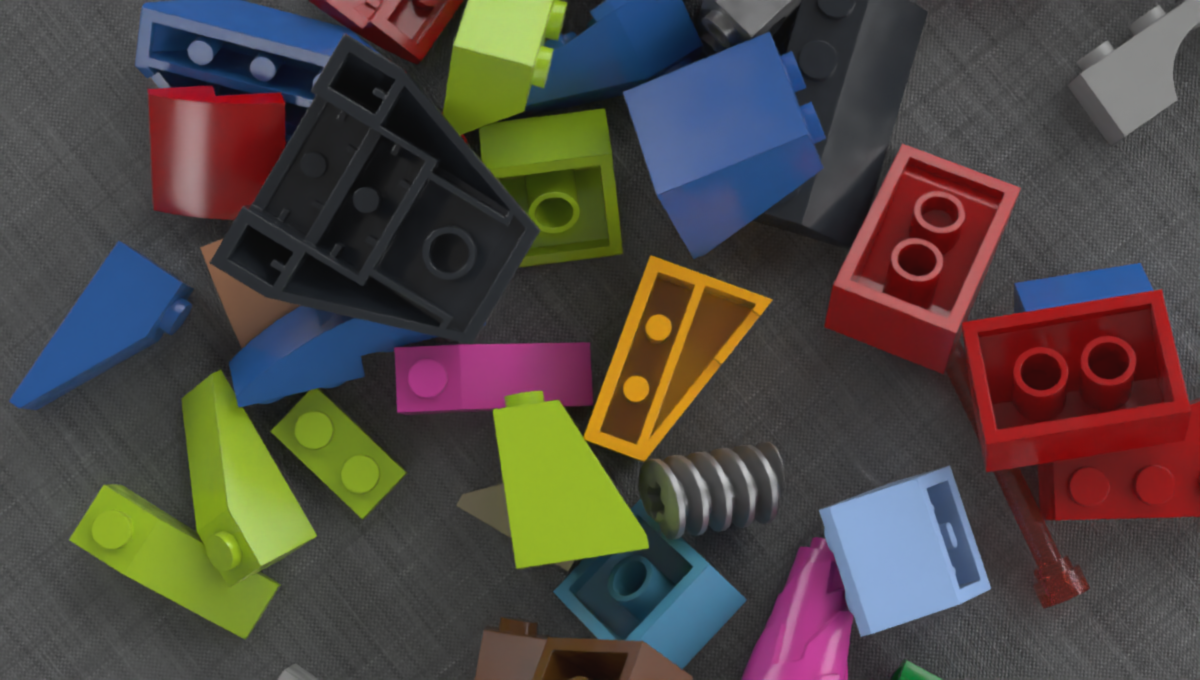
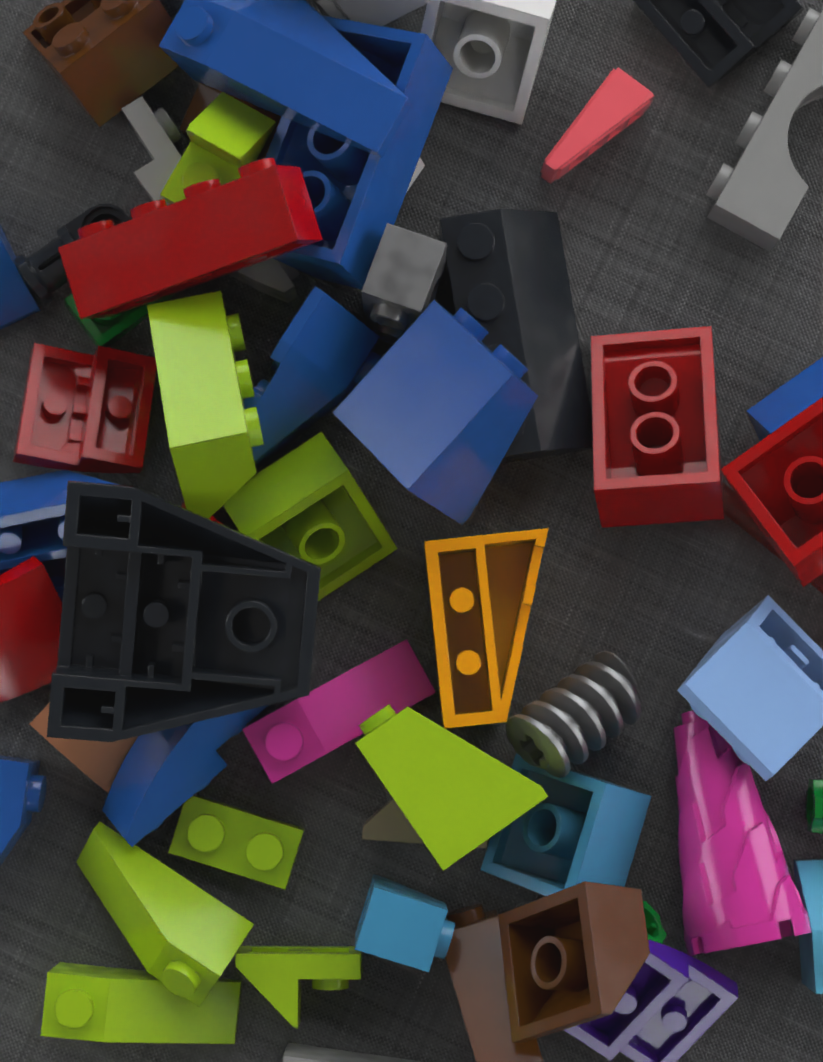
camera: 30 degrees left, 0 degrees up
(320, 591) = (279, 971): none -> lime slope
(455, 604) = (403, 925): none -> dark azure slope

